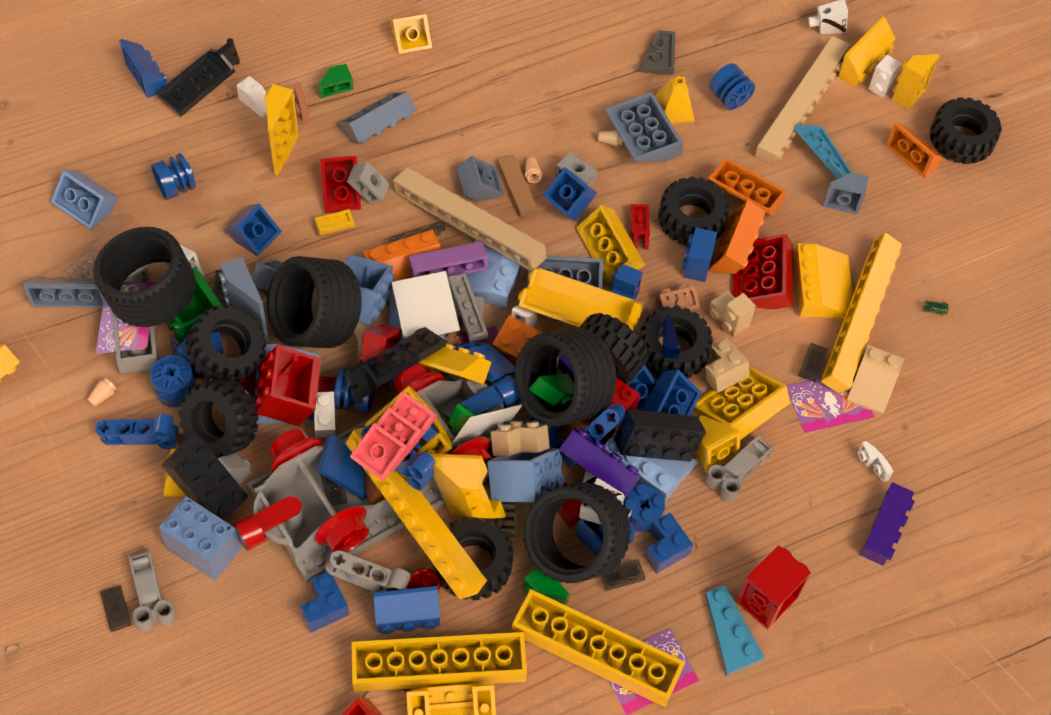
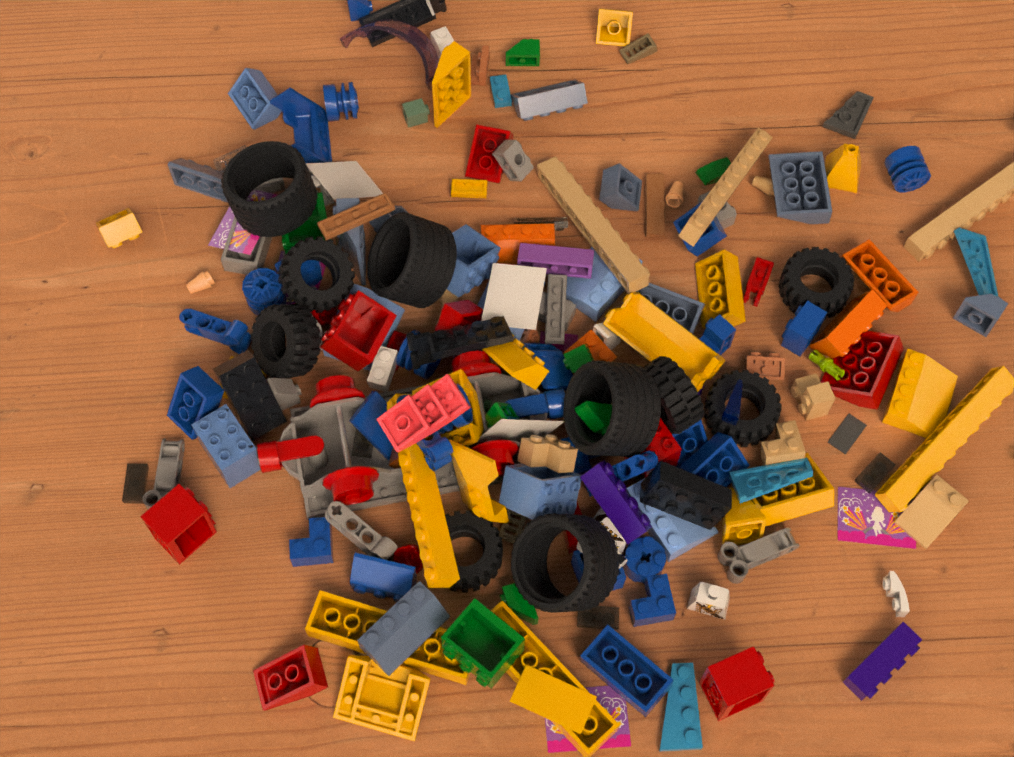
camera: 25 degrees right, 5 degrees up
(145, 205) = (309, 125): none -> blue windscreen
(148, 505) = (194, 399): none -> blue brick
(183, 627) = (179, 523): none -> red container
(211, 248) = (344, 179): none -> white sticker
(214, 93) = (405, 32): none -> windscreen
(247, 275) = (356, 216): none -> medium nougat tile
(251, 166) = (415, 112): none -> sand green brick
(253, 229) = (393, 173): blue slope -> none
(326, 123) = (500, 91): none -> dark azure piece
(446, 36) = (641, 42): none -> dark tan slope
(450, 647) = (403, 628): none -> sand blue slope
(510, 344) = (577, 357): none -> green slope
(532, 632) = (482, 644): none -> green container
(560, 138) = (713, 171): none -> green slope
(580, 148) = (725, 187): none -> tan brick
(615, 661) = (553, 699): none -> yellow sticker
(669, 612) = (626, 670): none -> blue brick
(716, 523) = (709, 600): none -> white torso
(721, 399) = (765, 479): none -> dark azure wing
(732, 280) = (826, 364): none -> lime pin
(774, 336) = (847, 433): none -> dark grey sticker

